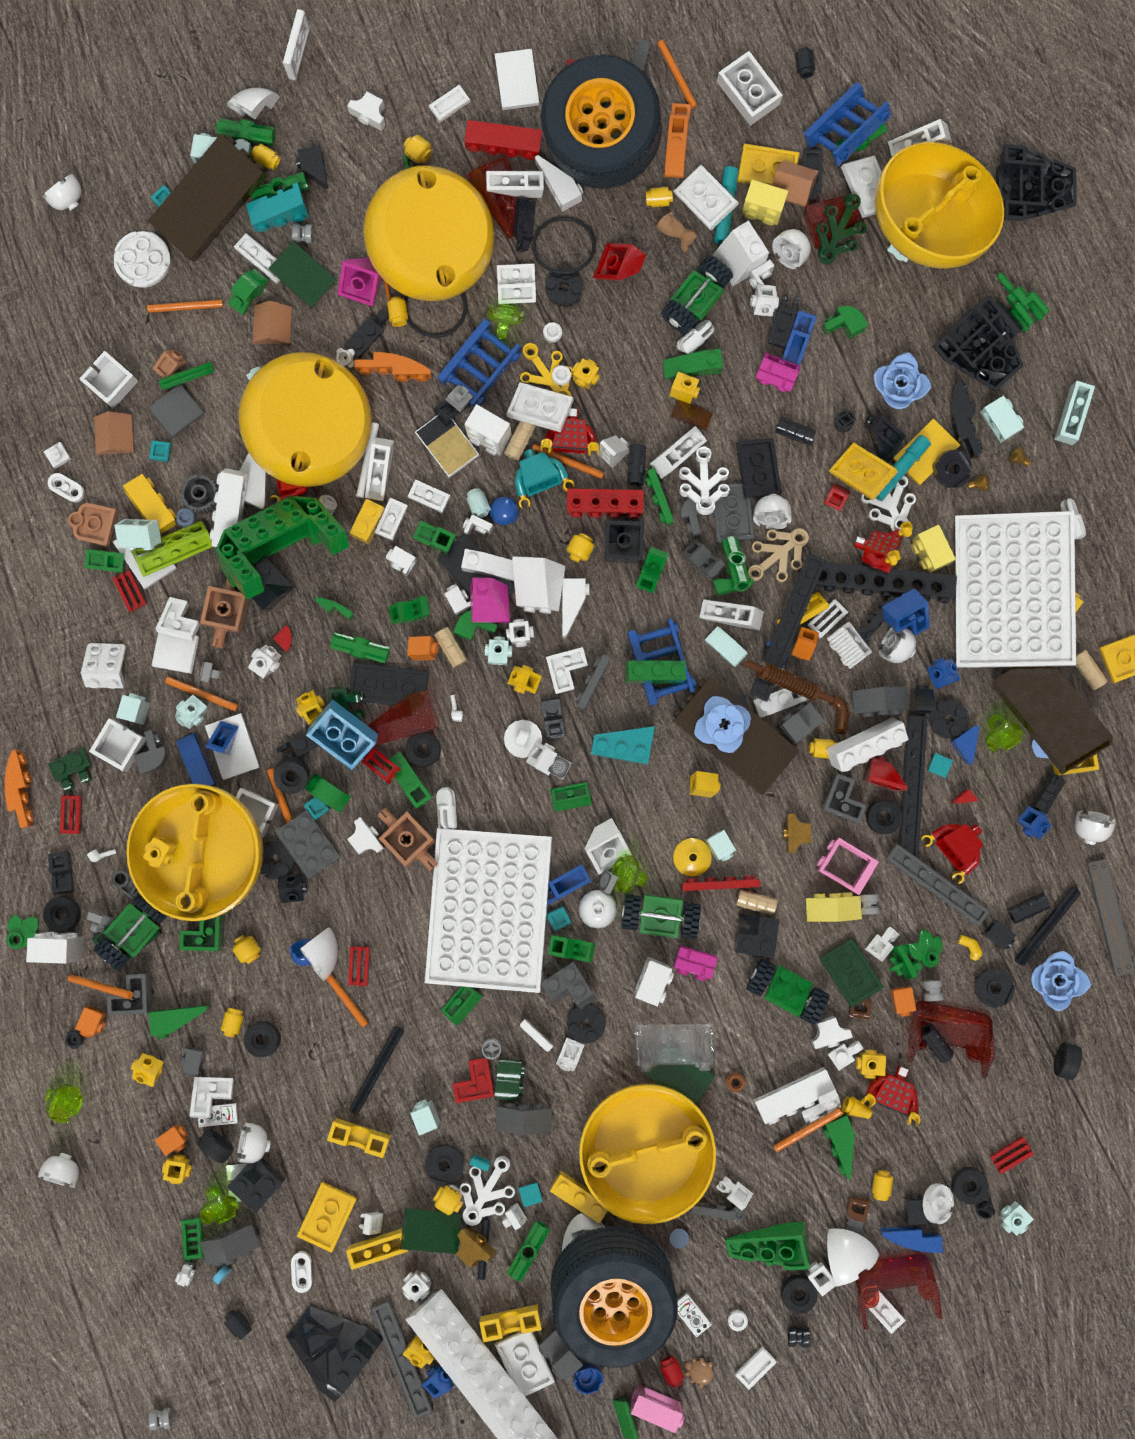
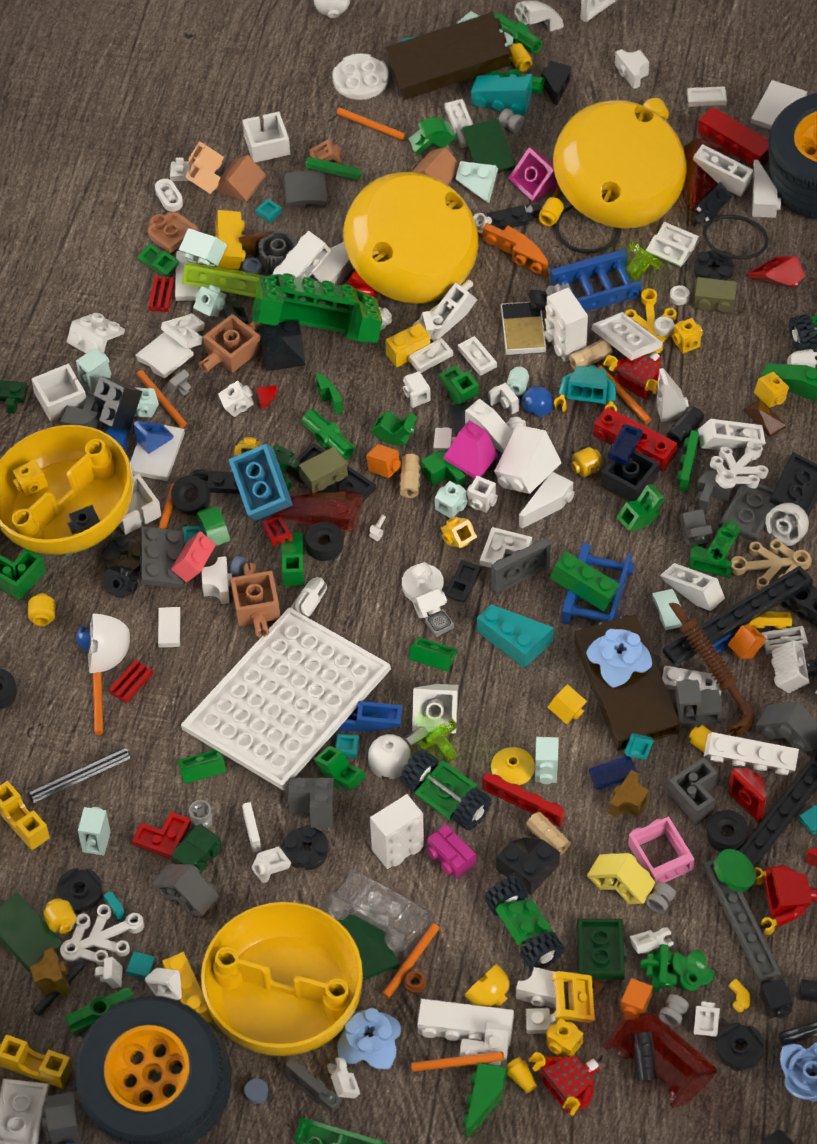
camera: 30 degrees right, 30 degrees down
(75, 439) = (203, 164): none -> light nougat brick
(172, 493) = (251, 242): none -> reddish brown slope
(175, 728) = (116, 402): none -> black slope
(177, 578) = (210, 300): none -> light aqua brick
(203, 574) = (233, 308): none -> black plate
(235, 870) = (82, 519): none -> black brick
(314, 313) = (477, 178): none -> light aqua wing
(334, 833) = (193, 556): none -> coral brick
(354, 900) = (169, 627): none -> white tile
(370, 492) = (427, 322): none -> white tile
(371, 814) = (236, 566): none -> sand blue tile
(382, 688) = (323, 470): none -> olive brick
(502, 546) = (514, 422): none -> white plate
(562, 1206) = (165, 983): none -> white slope
(583, 317) = (715, 294): none -> olive brick
(607, 521) = (625, 444): none -> clear blue tile
(720, 1066) = (410, 961): none -> orange bar
(747, 1153) = (377, 1050): none -> light blue brick
(770, 817) = (611, 772): none -> clear blue tile
(778, 787) = (638, 746): none -> teal tile
(795, 1060) = (490, 988): none -> yellow cylinder
(864, 1026) = (580, 997): none -> yellow plate
(913, 852) = (735, 870): none -> green tile
(959, 981) = (706, 1019): none -> white bracket

